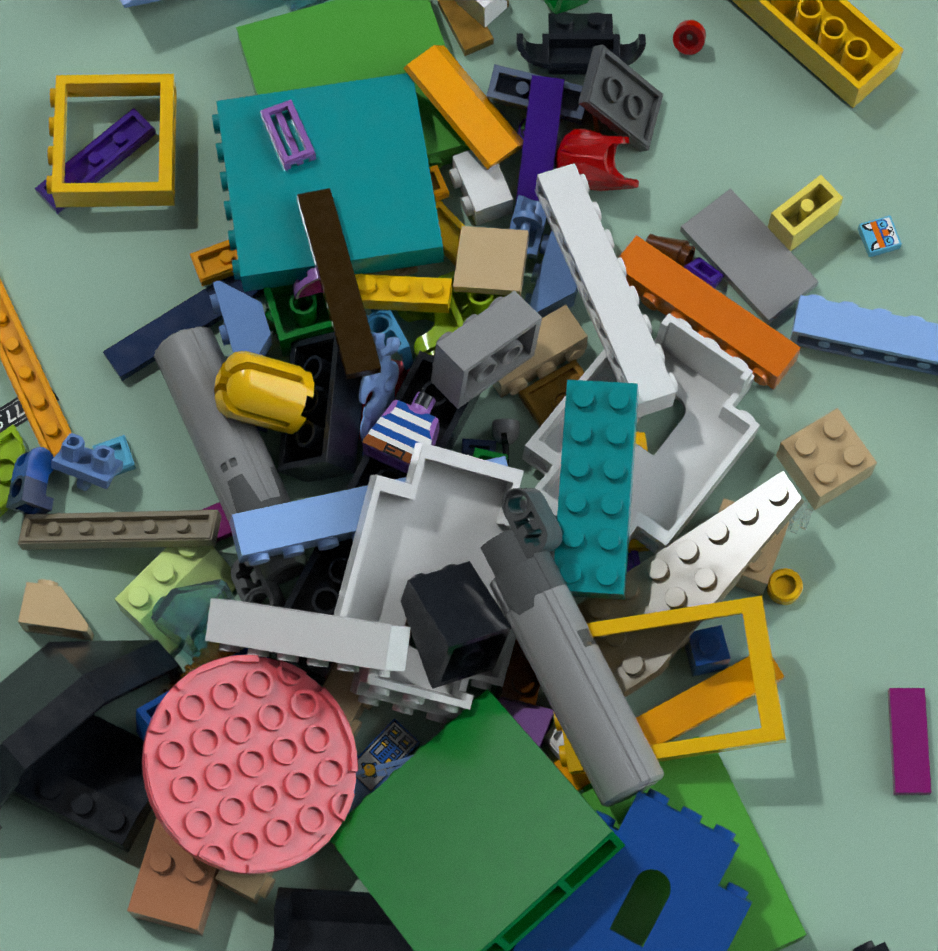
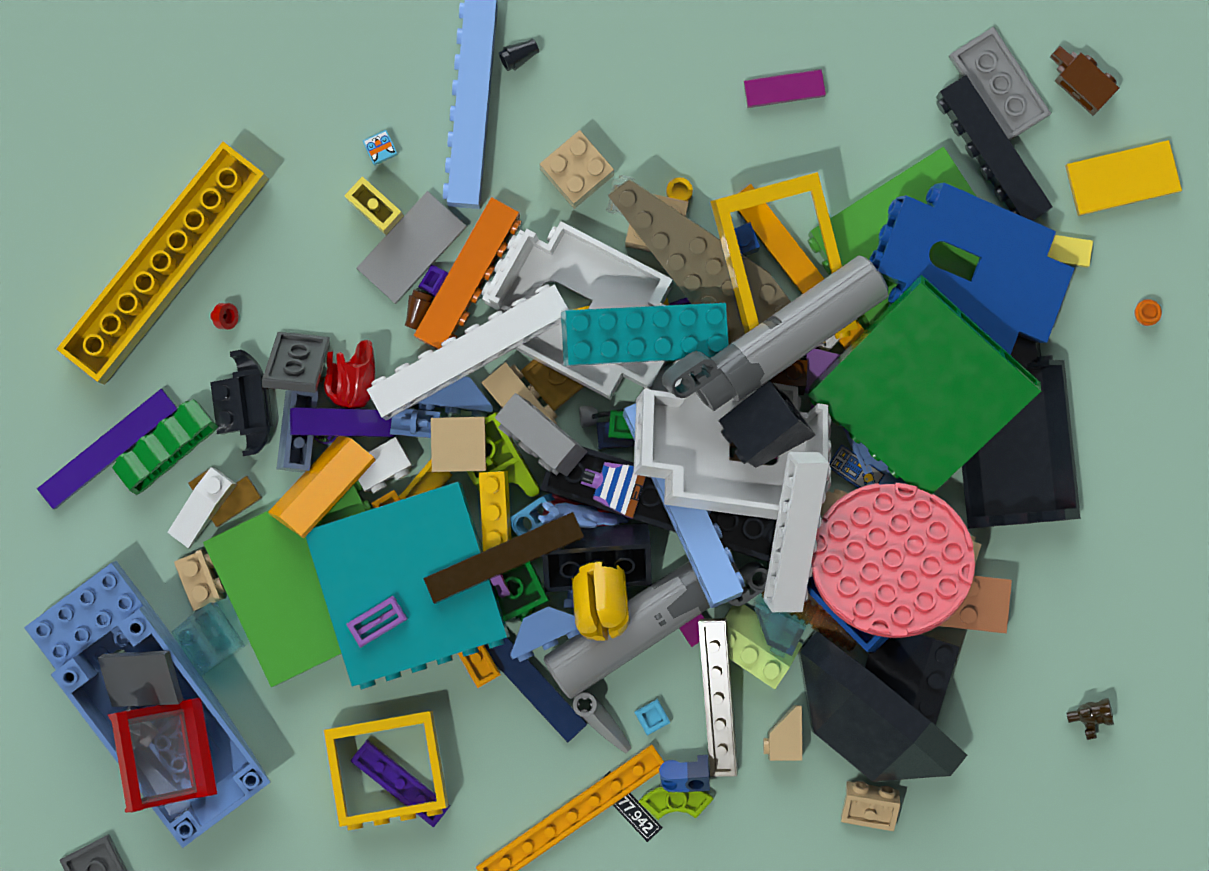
camera: 95 degrees left, 15 degrees up
(85, 464) = (667, 734): medium blue hips -> none
(125, 393) = (601, 721): none -> light grey piece

